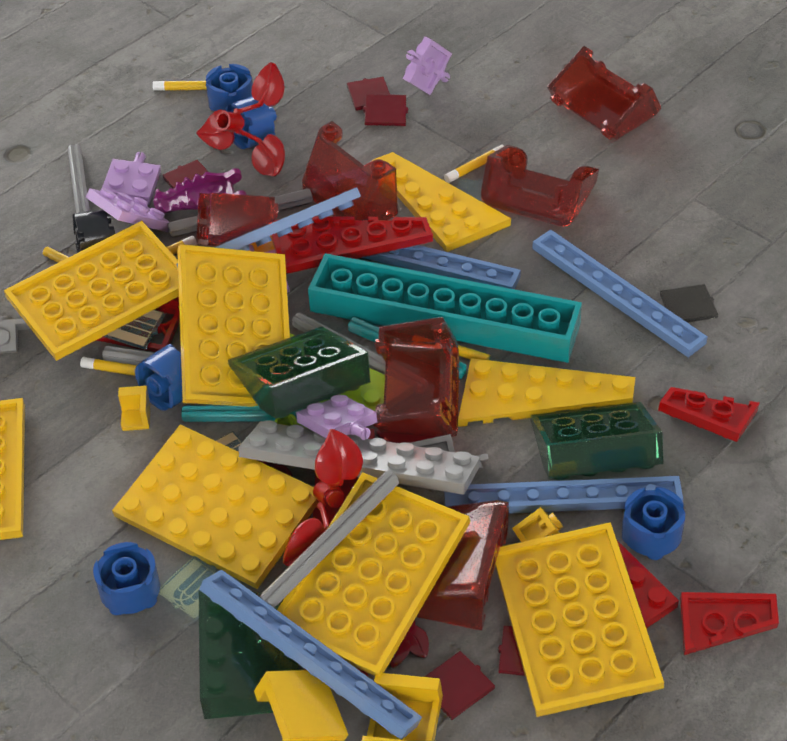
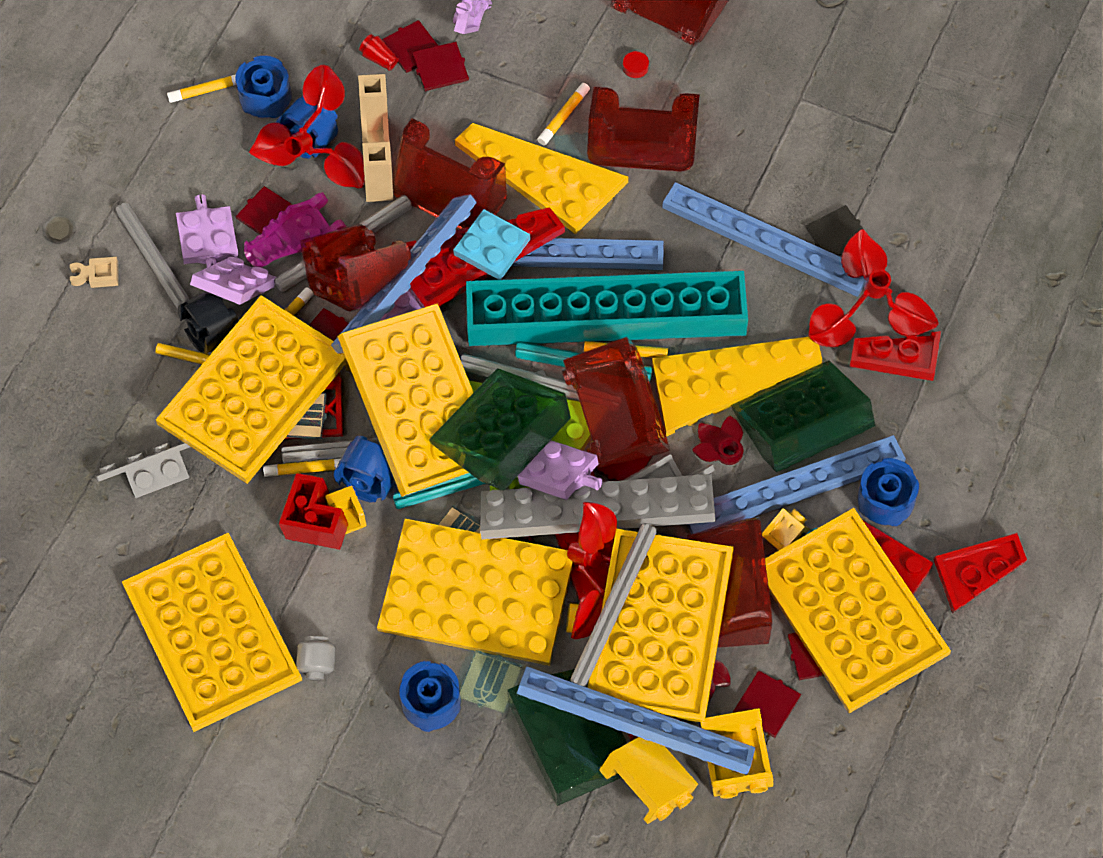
camera: 20 degrees left, 15 degrees up
(29, 187) = (99, 273): none -> tan plate
(42, 518) = (315, 657): none -> light grey head
(97, 402) = (308, 517): none -> red brick
(294, 147) = (375, 138): none -> tan arch
(337, 88) = (378, 52): none -> red cone
(361, 232) = (491, 244): none -> medium azure plate
(506, 444) = (718, 440): none -> dark red plate
(554, 142) = (635, 64): none -> red tile
(705, 327) = (866, 258): none -> red plant

